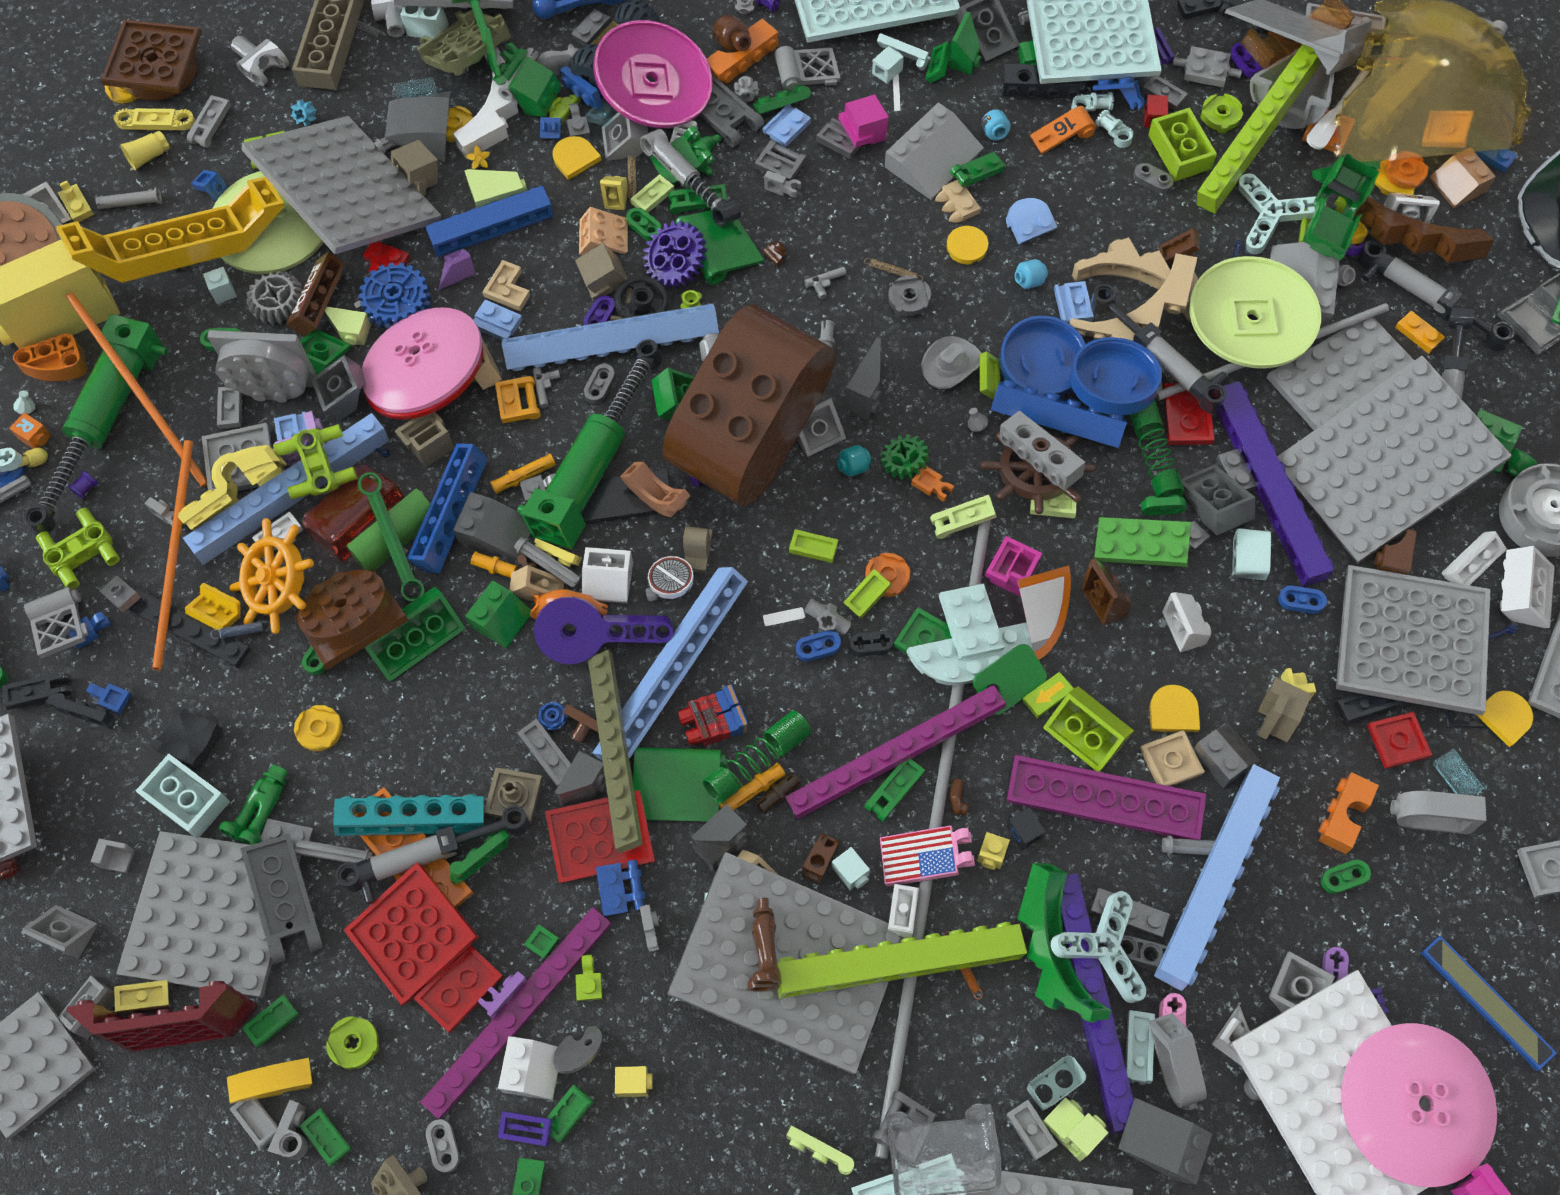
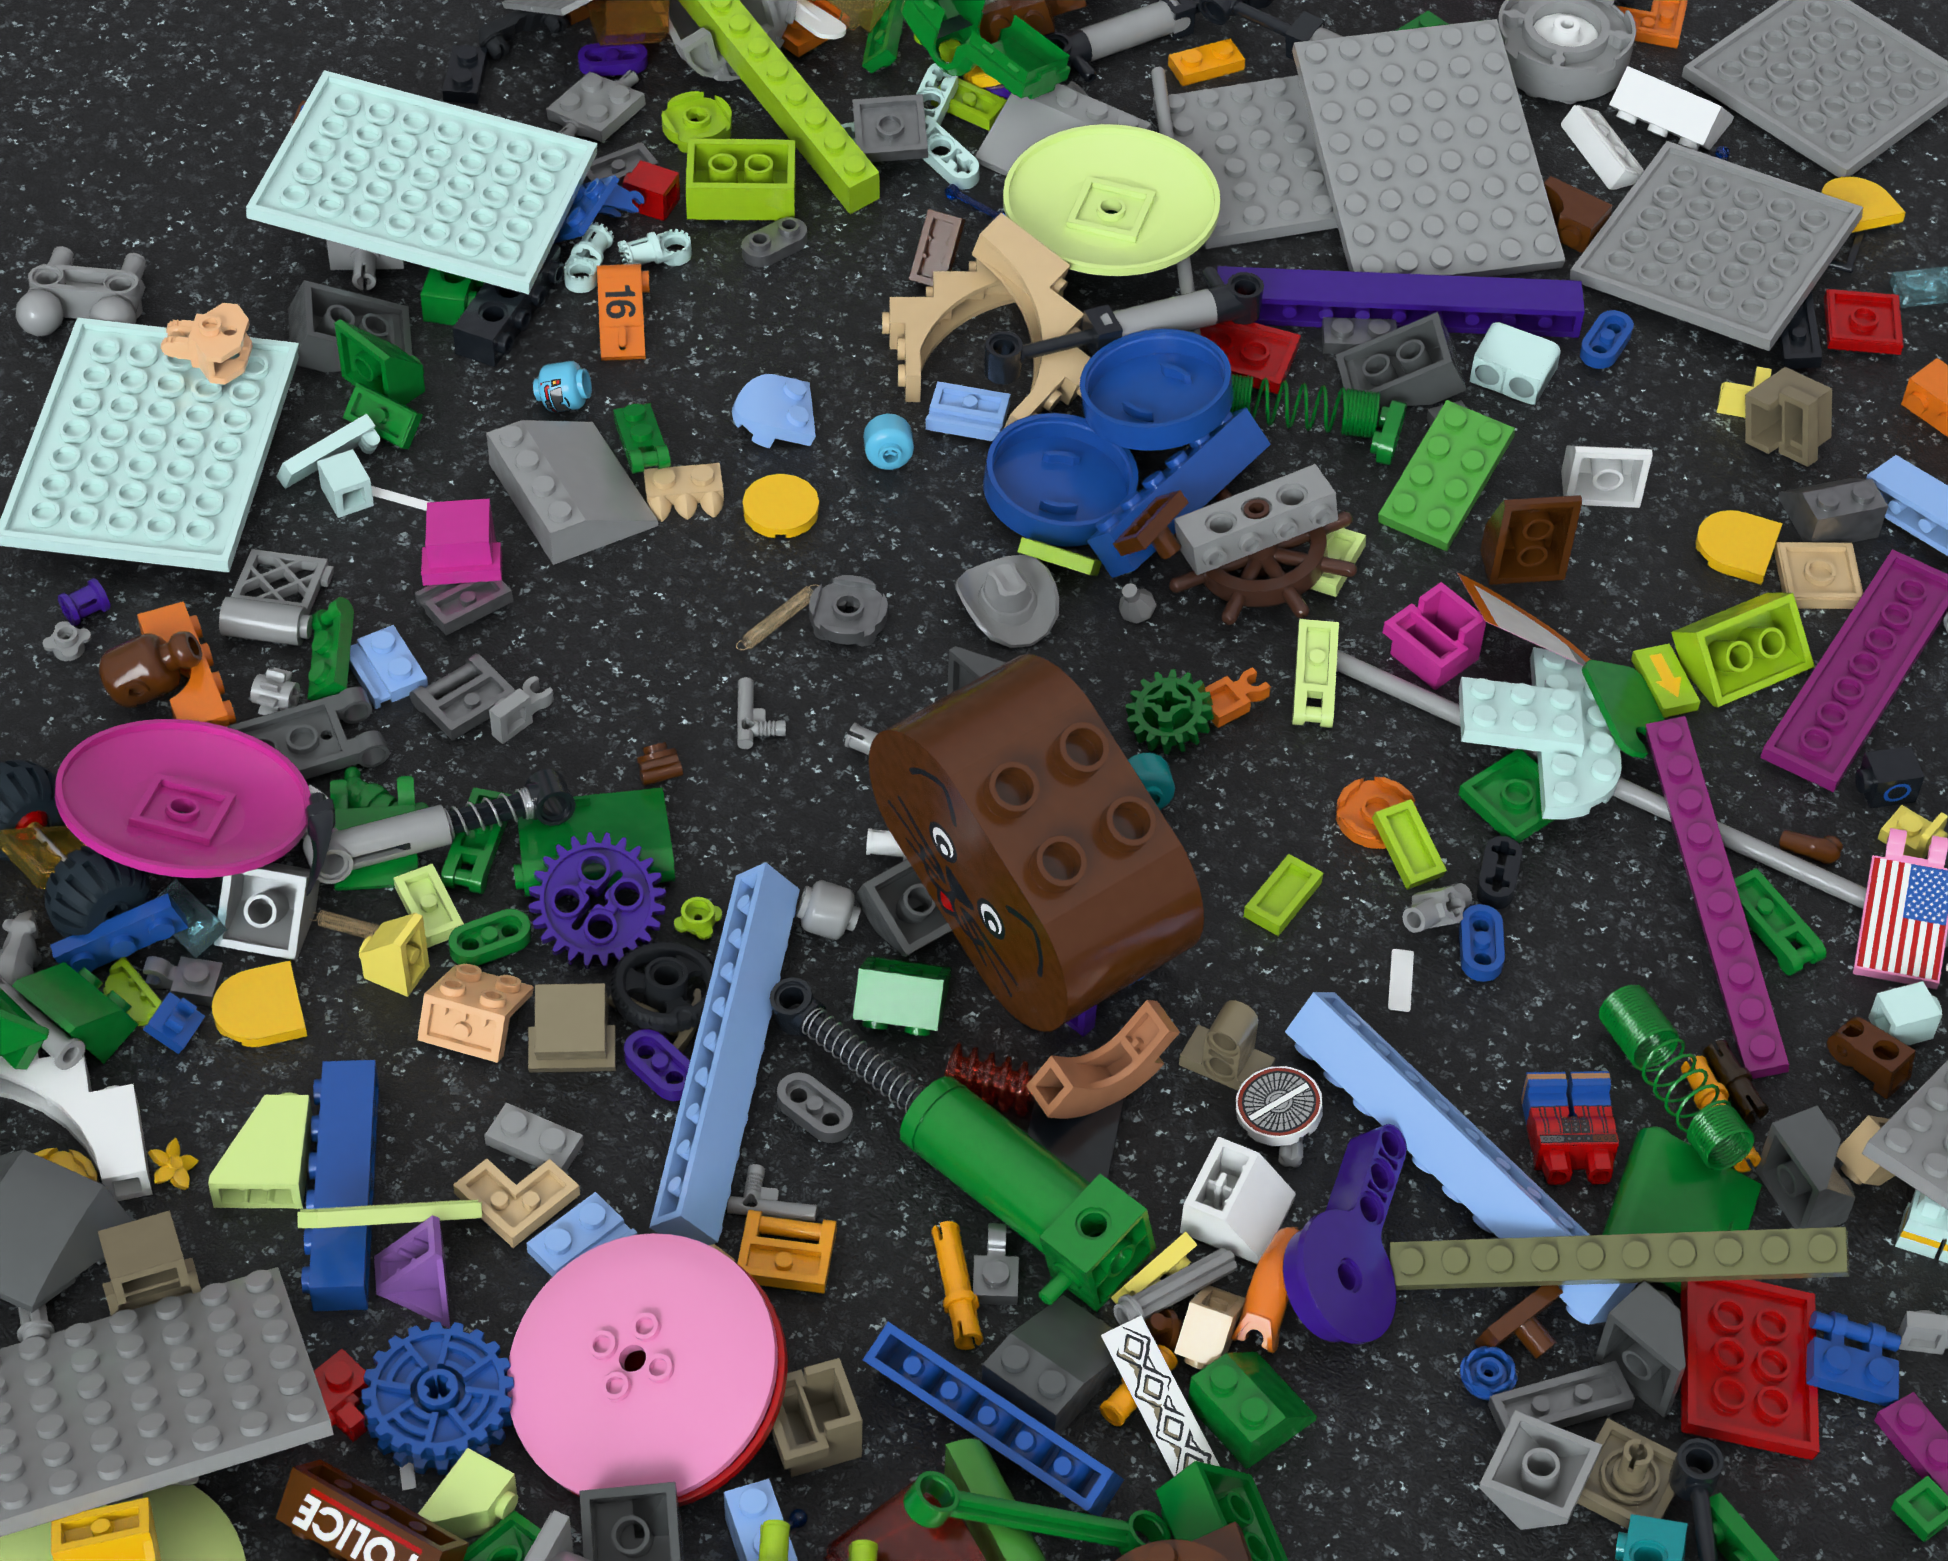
camera: 75 degrees left, 15 degrees down
(466, 238) = (388, 1213): none -> yellowish green tile
(482, 576) = (1157, 1395): none -> white sticker
(496, 748) = (1538, 1472): none -> light grey slope
(543, 283) = (533, 1138): none -> light grey plate
(640, 445) = (992, 1080): none -> clear red piece
(661, 127) = (319, 823): none -> black bar
(1012, 403) = (1152, 527): none -> reddish brown tile
(1258, 195) = (891, 127): none -> flat silver plate

